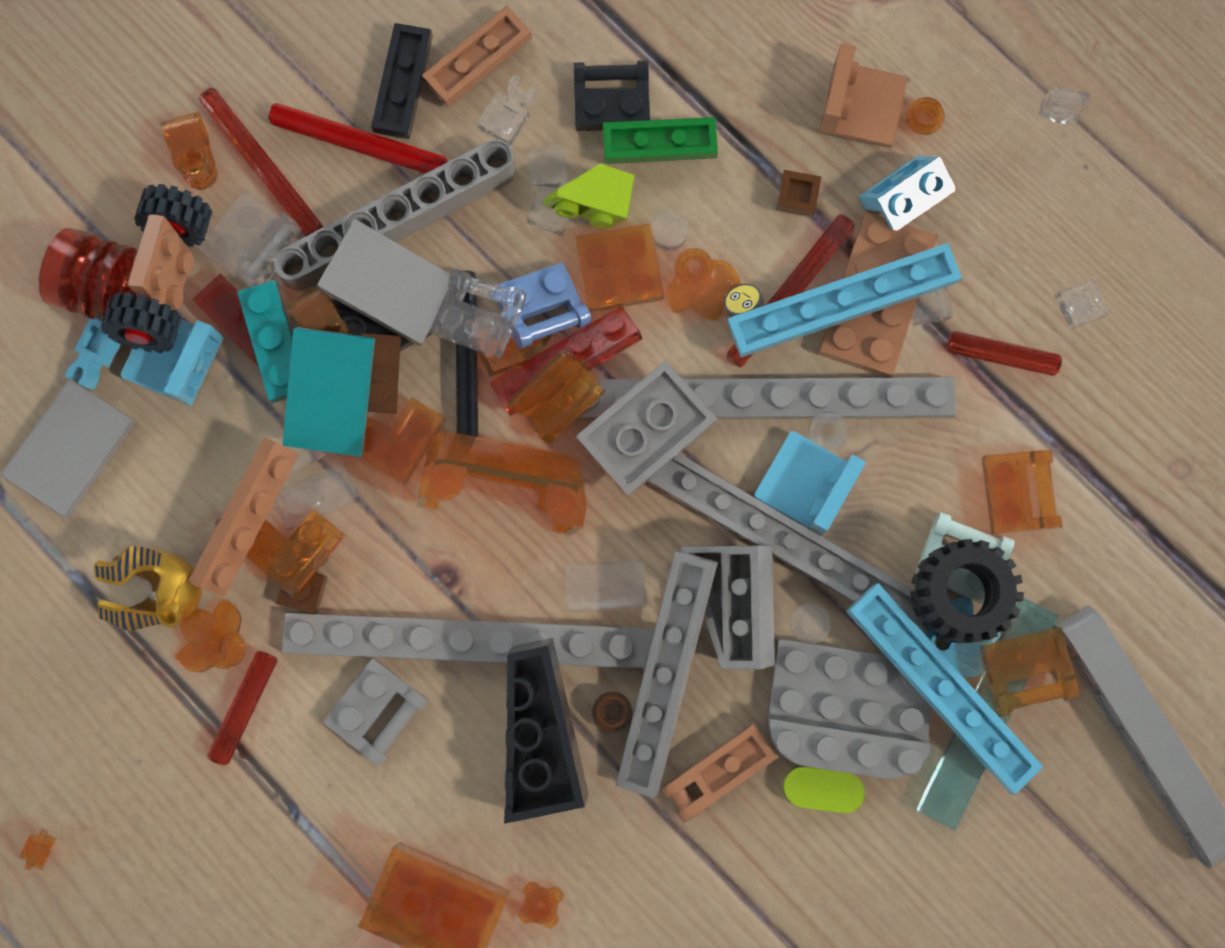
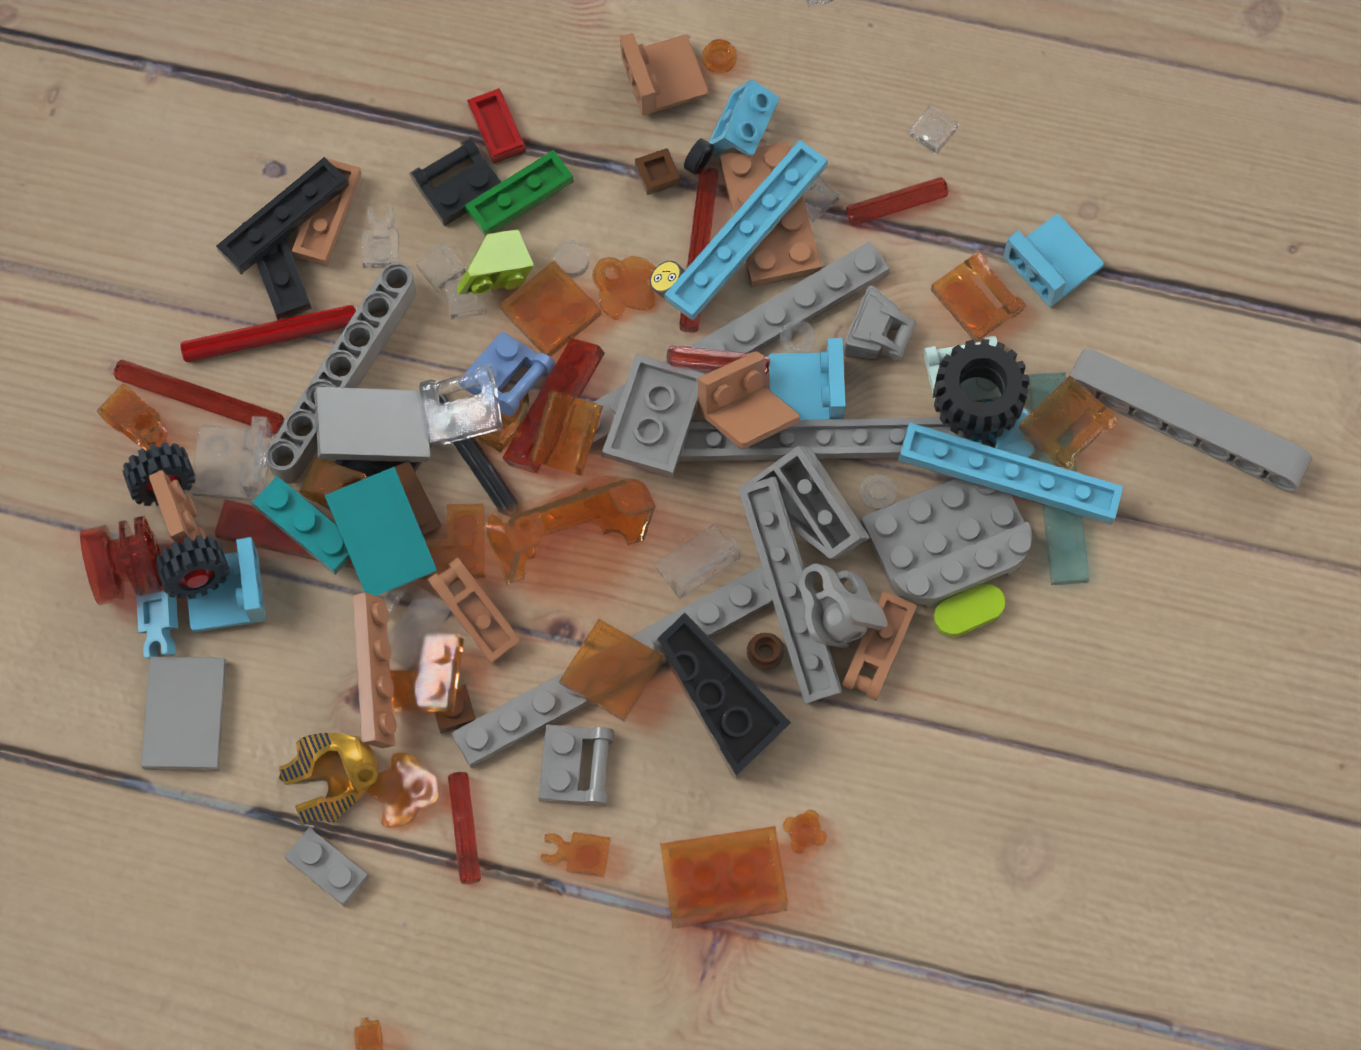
camera: 30 degrees left, 10 degrees down
(102, 667) = (326, 867): none -> light grey plate
(330, 801) = (585, 853): none -> clear orange plate
(372, 513) = (475, 611): none -> nougat plate
(432, 36) = (282, 215): none -> black tile
(457, 646) = (611, 669): none -> clear orange tile
(680, 63) = (496, 125): none -> red tile
(696, 726) = (835, 614): none -> light grey piece
(735, 468) = (740, 404): none -> nougat bracket
(738, 410) = (704, 358): none -> clear red axle
(845, 201) = (698, 156): none -> black tile
(904, 461) = (871, 326): none -> light grey piece
(1116, 498) = (1052, 259): none -> medium azure bracket

